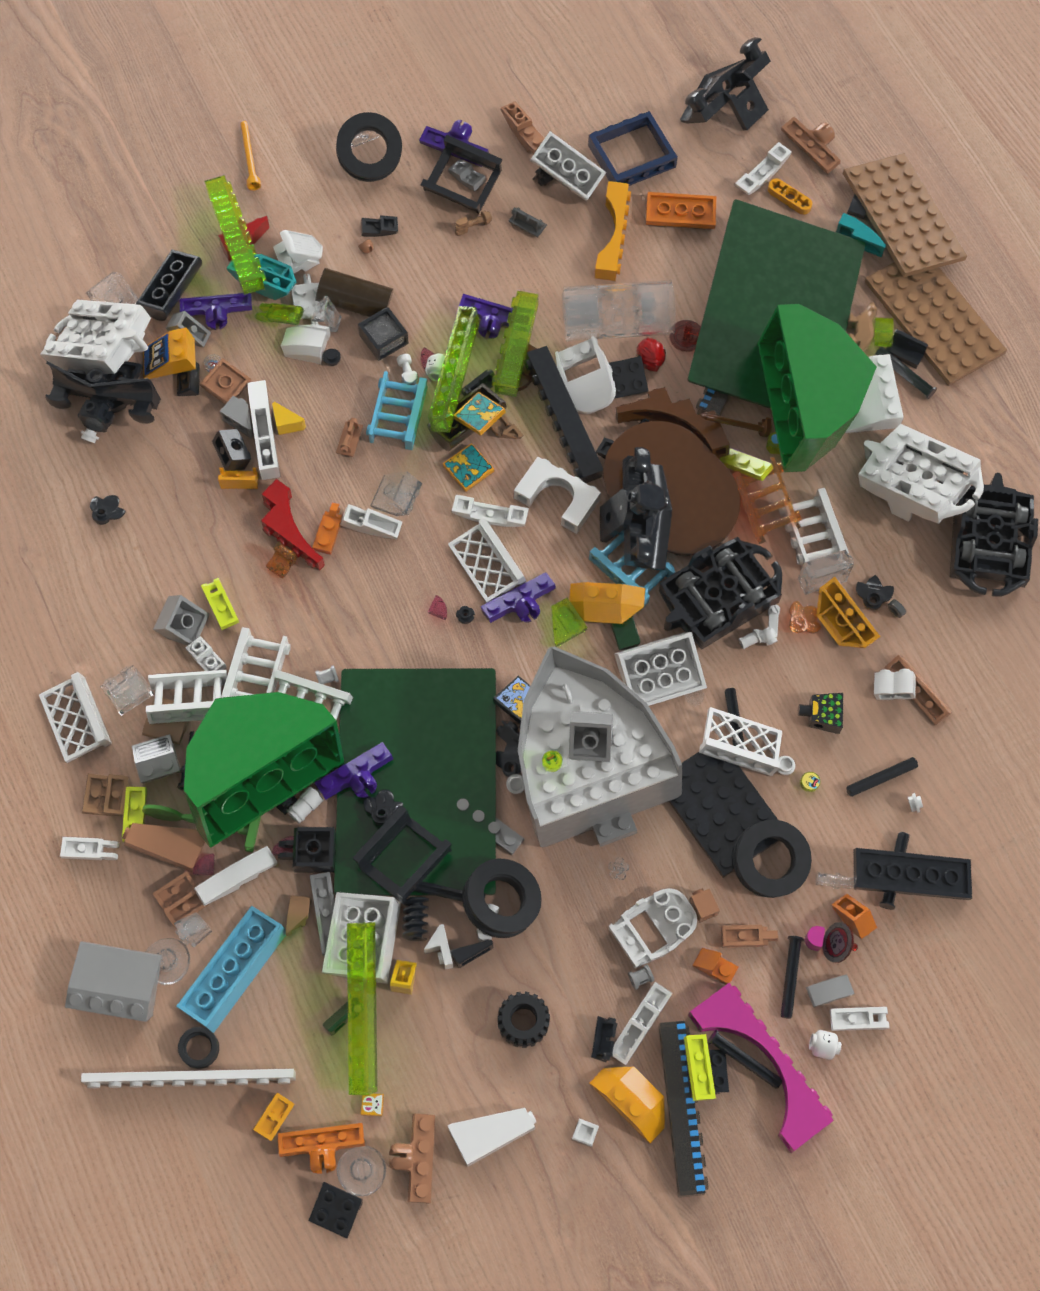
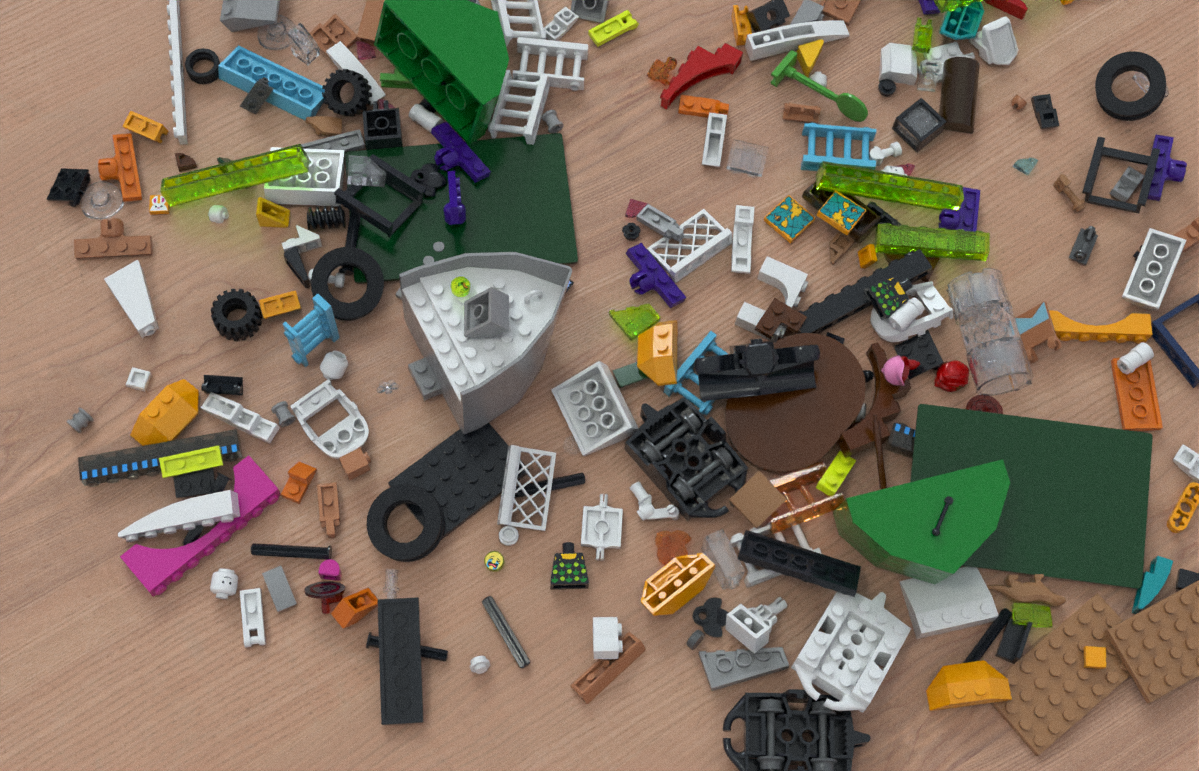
camera: 80 degrees right, 0 degrees up
(256, 990) = (257, 96): none -> dark grey hinge
(280, 890) = (333, 89): none -> black tyre
(312, 418) = (819, 78): none -> white piece
(320, 1074) = (185, 162): none -> reddish brown tile
(352, 393) = (847, 103): none -> bright green piece
(371, 870) = (364, 172): none -> clear slope
(391, 1039) = (218, 213): none -> white piece
(426, 778) = (454, 211): none -> dark purple plate
(435, 253) = (1025, 165): none -> clear light blue tile
(461, 584) = (660, 222): none -> light grey hinge
(516, 972) = (279, 304): none -> light orange hinge
(519, 403) = (867, 256): none -> light orange tile
(554, 923) = (311, 330): none -> medium azure fence
(575, 386) = (888, 296): none -> black torso
(581, 487) = (779, 314): none -> reddish brown plate
(592, 919) = (334, 365): none -> white head
(597, 374) = (904, 316): none -> white piece
(614, 269) = (1036, 328): none -> nougat flag
(631, 1196) = (80, 420): none -> light grey bush
(652, 201) = (1136, 357): none -> white piece
(652, 392) = (897, 369): none -> bright pink hair
(755, 1078) = (185, 515): none -> white slope
(771, 532) = (757, 499): none -> medium nougat slope
(782, 678) = (601, 527): none -> white plate
(813, 355) = (948, 501): none -> black hinge
(838, 504) = (799, 563): none -> black plate
(886, 556) = (754, 624): none -> white brick
(922, 576) = (741, 665): none -> light grey wing
(926, 289) = (1094, 657): none -> light orange tile
(949, 393) = (967, 686): none -> light orange wedge

